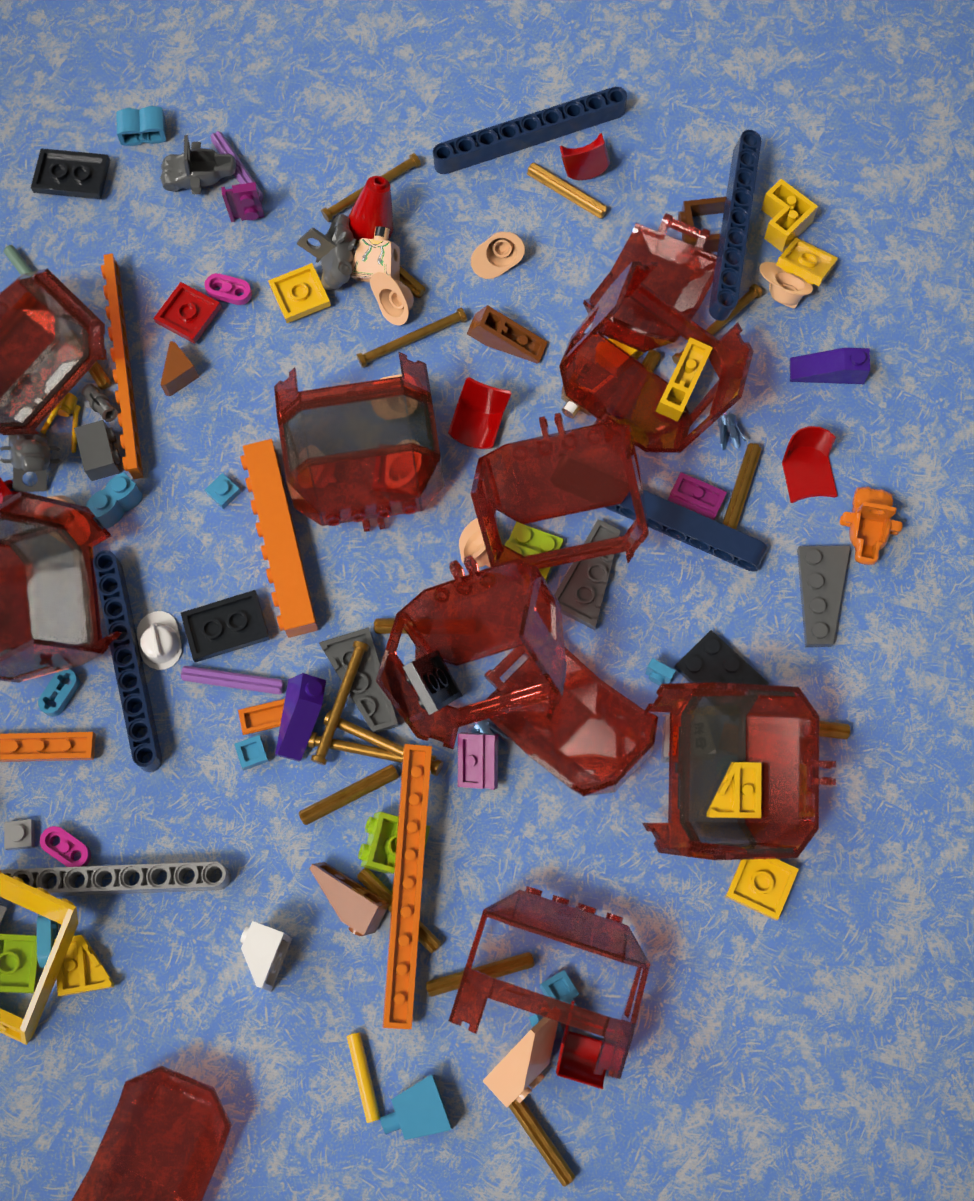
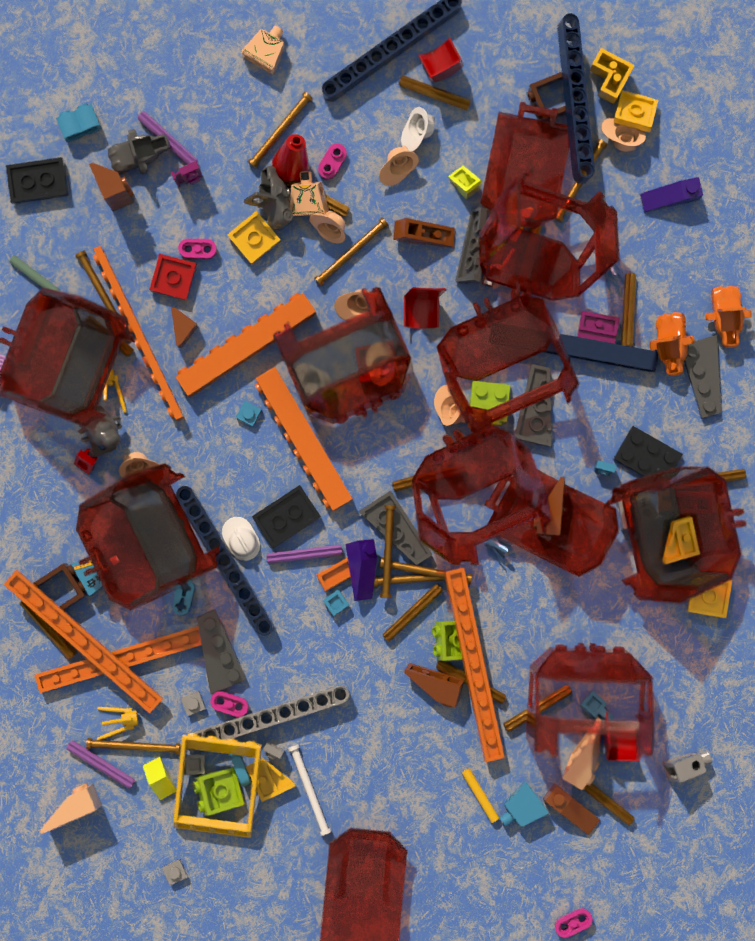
camera: 20 degrees left, 15 degrees up
(74, 778) = (219, 657): none -> dark grey wing
(90, 265) = (94, 279): none -> pearl gold bar
(97, 450) = (145, 408): dark grey brick -> none
(99, 402) = (133, 370): dark grey pin -> none
(99, 929) = (273, 751): none -> light grey plate
(118, 497) = (175, 440): dark azure brick -> none
(130, 1000) = (309, 790): none -> white bar
(149, 191) = (113, 188): none -> dark orange slope
(229, 413) = (244, 346): none -> orange brick
(264, 953) = (392, 736): white slope -> none
(381, 100) = (265, 49): none -> light nougat torso
(424, 235) = (332, 161): none -> dark pink plate
(432, 682) = (451, 522): black plate -> none
(477, 760) = (496, 566): plate -> none
(487, 1137) = (571, 809): none -> dark orange slope
(537, 219) = (418, 127): none -> white piece
(552, 382) = (469, 268): none -> dark grey wing
(574, 293) = (465, 182): none -> neon yellow slope
(574, 706) = (556, 502): none -> dark orange slope
(661, 1119) = (686, 766): none -> light grey torso
(683, 379) = (568, 239): yellow slope -> none
(788, 537) = (672, 342): none -> orange piece
(808, 464) = (674, 281): red piece -> none

